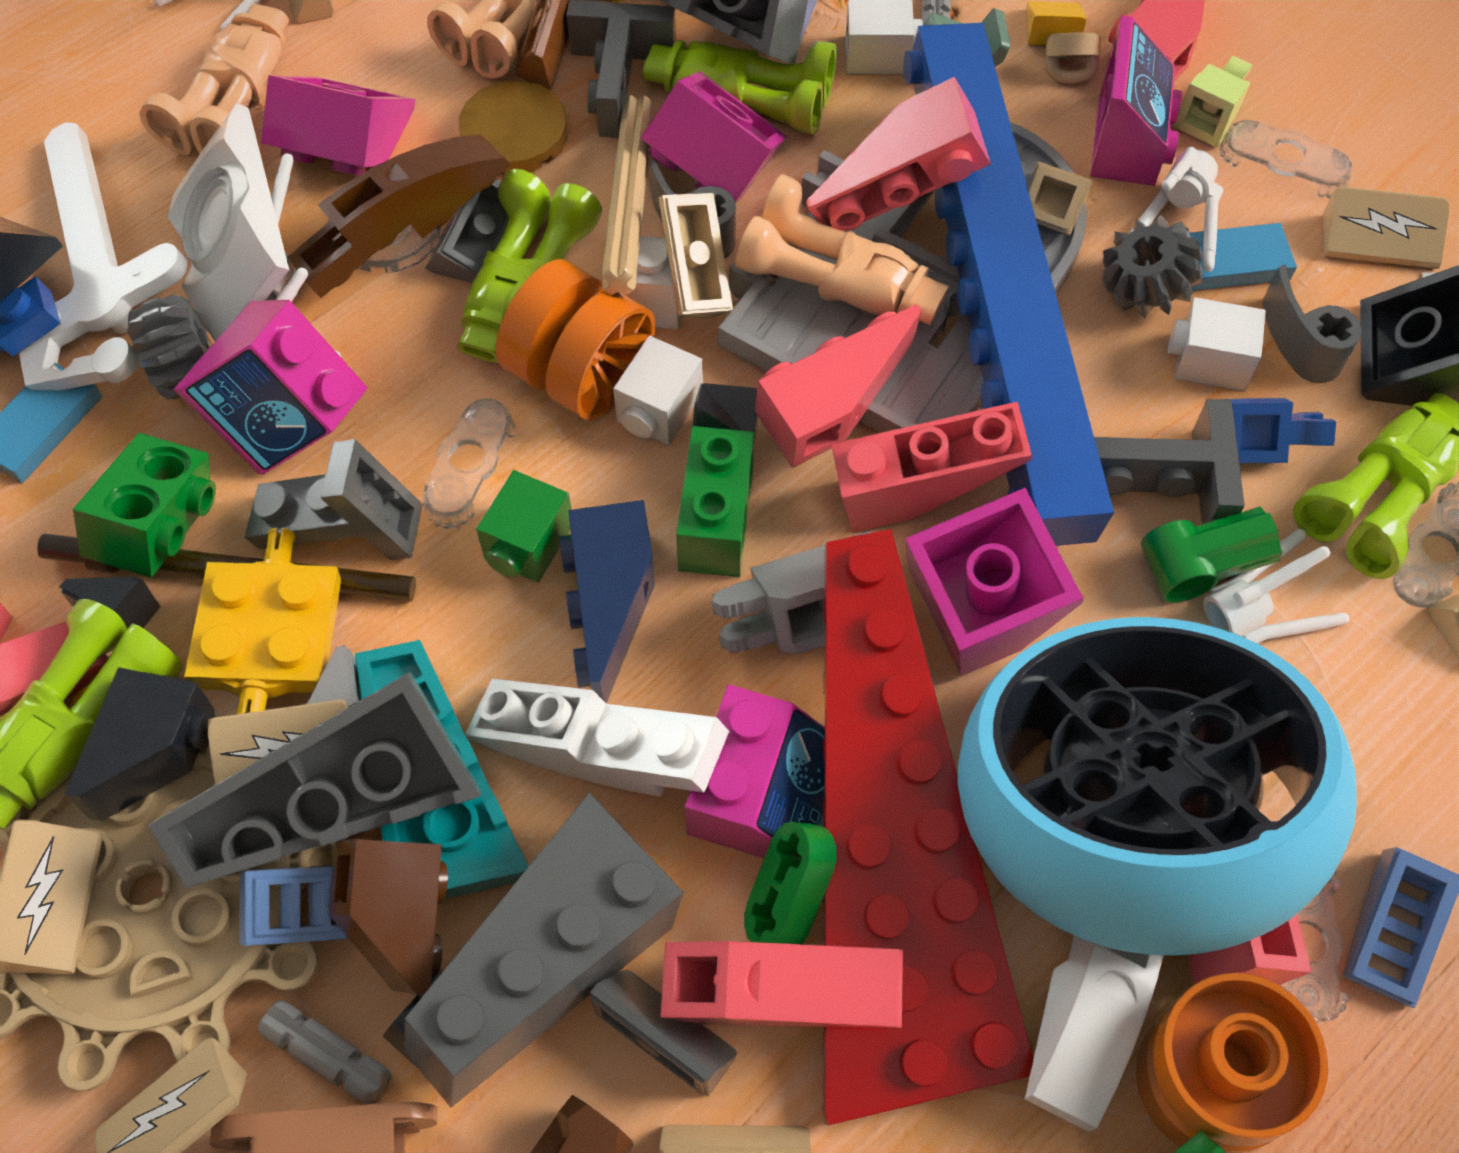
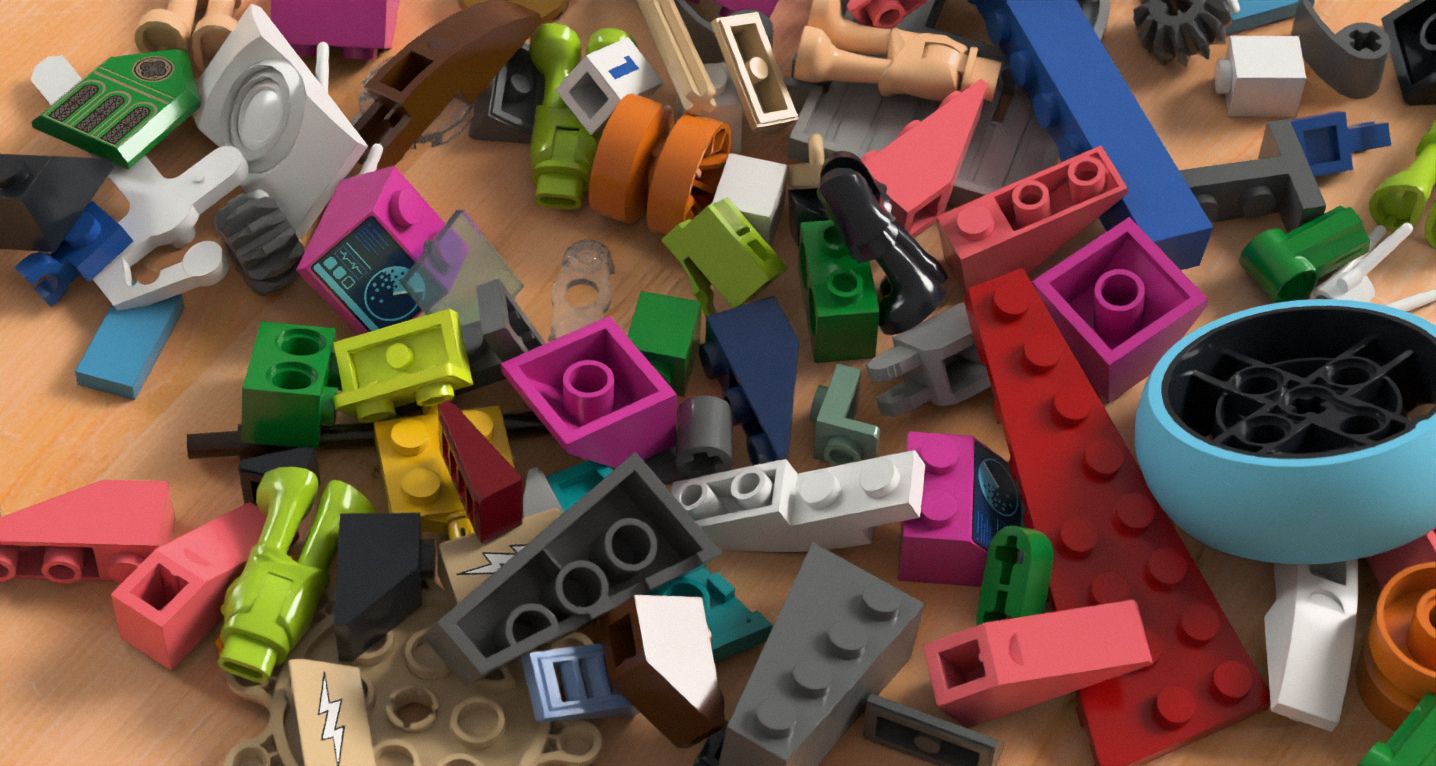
camera: 15 degrees left, 10 degrees down
(103, 184) = (125, 105): none -> green tile
(249, 508) = (402, 365): none -> neon yellow bracket
(261, 670) = (481, 475): none -> dark red slope
(344, 408) = (453, 268): none -> clear light blue piece
(424, 579) = (597, 394): none -> dark pink slope
(506, 647) = (702, 441): none -> dark grey panel
(552, 234) = (604, 79): none -> white brick
(608, 446) = (727, 252): none -> lime piece
(669, 642) = (837, 434): none -> sand green bracket
(734, 368) = (808, 174): none -> tan tile
(746, 447) = (869, 230): none -> black piece

